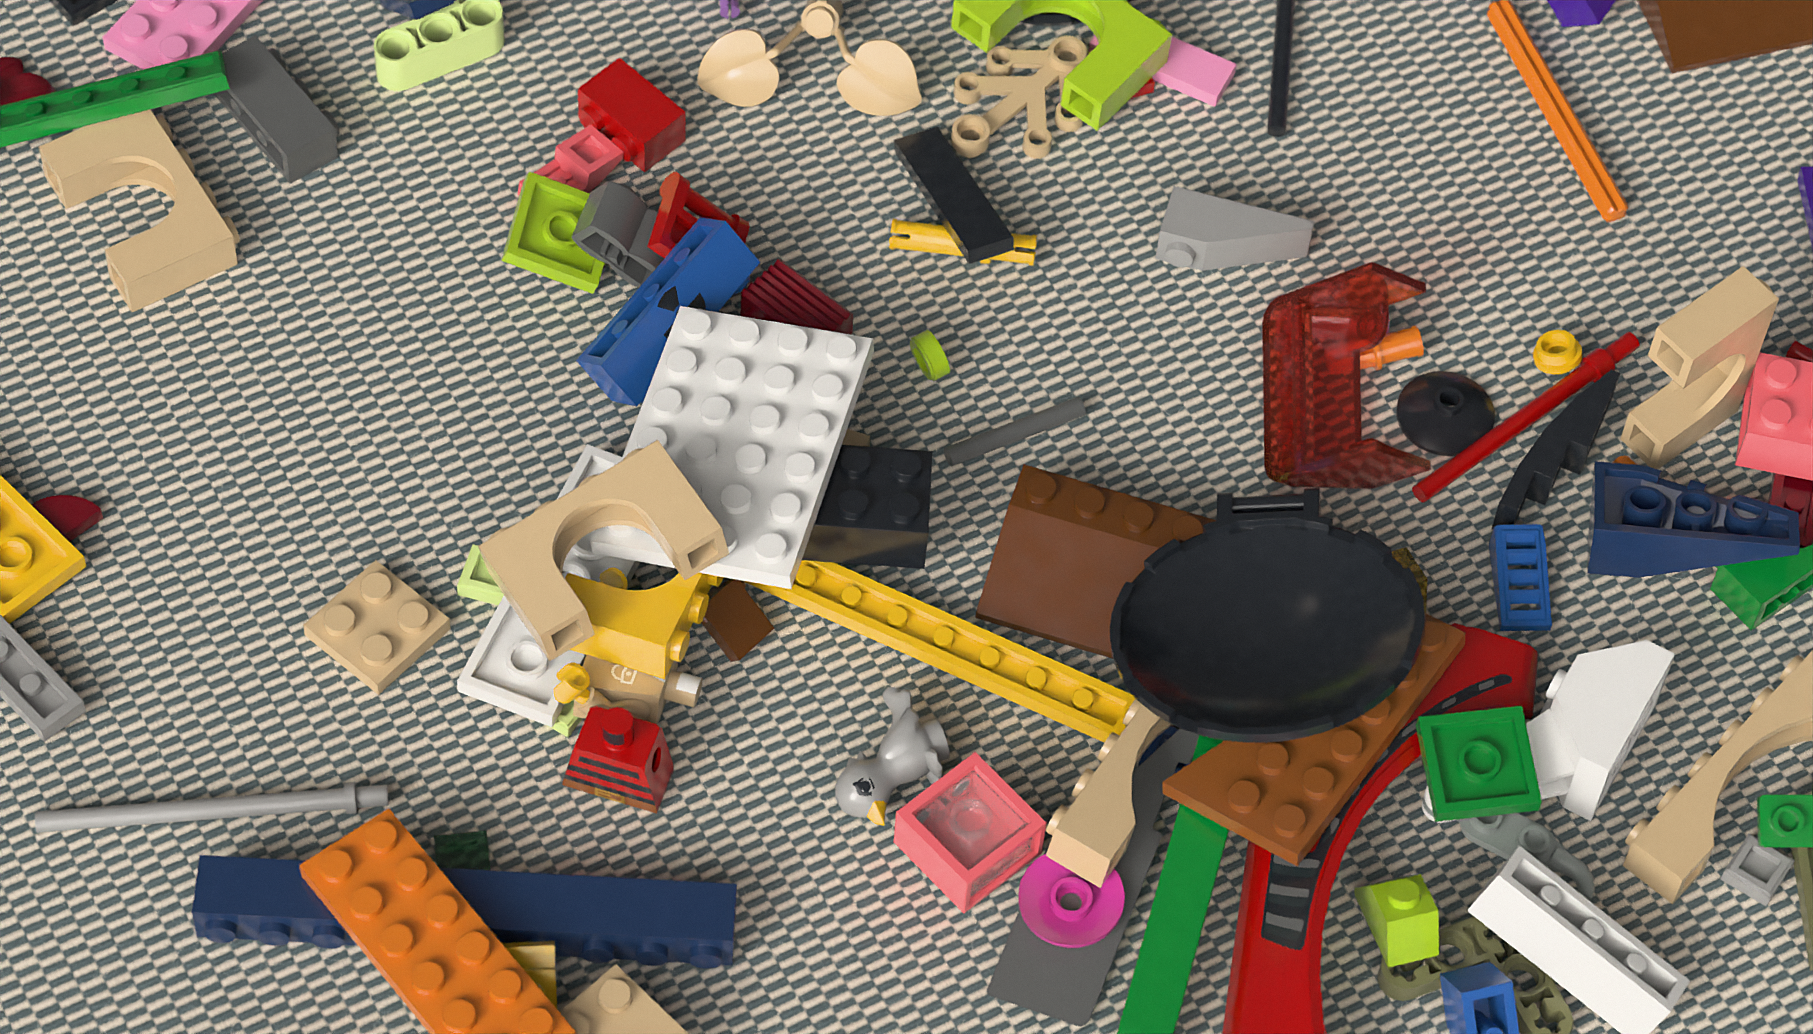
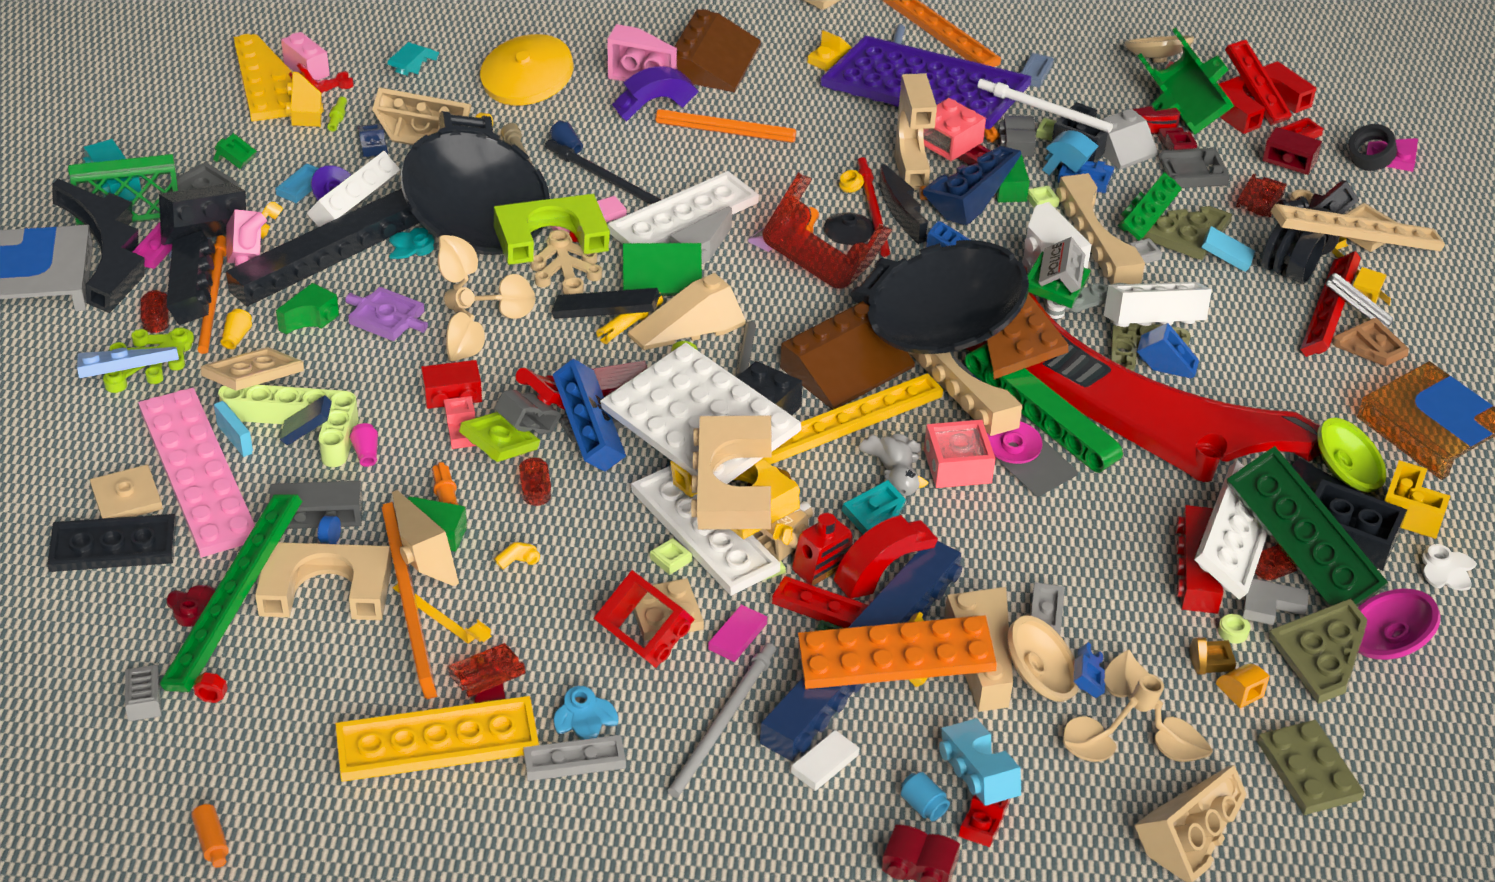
camera: 55 degrees left, 15 degrees down
(100, 645) = (584, 717): none -> dark azure plate
(101, 480) = (486, 669): none -> clear red plate
(152, 427) = (478, 631): none -> yellow piece
(169, 318) = (409, 604): none -> orange tile
(216, 975) = (825, 760): none -> white tile
(236, 153) = (329, 530): none -> blue tile
(265, 259) = (423, 542): none -> tan wedge
(336, 266) = (448, 516): none -> green slope
(346, 579) = (625, 600): none -> red window
(364, 398) = (517, 551): none -> yellow arm
(391, 740) = (737, 633): none -> dark pink tile
(417, 232) = (444, 486): none -> orange axle
(435, 90) = (365, 443): none -> dark pink cone
(507, 329) = (535, 481): none -> clear red plate
(514, 805) = (817, 602): none -> red plate
(653, 828) = (876, 550): none -> red arch
(769, 787) = (874, 506): none -> teal wing
(1037, 318) = (697, 310): none -> tan wedge
(1094, 221) = (661, 266): none -> green tile
(1255, 165) = (683, 209): none -> white plate
(1401, 918) = (1107, 340): lime slope -> none
(1497, 755) = (1063, 261): none -> light grey panel
(1772, 647) = (1042, 195): none -> yellowish green tile

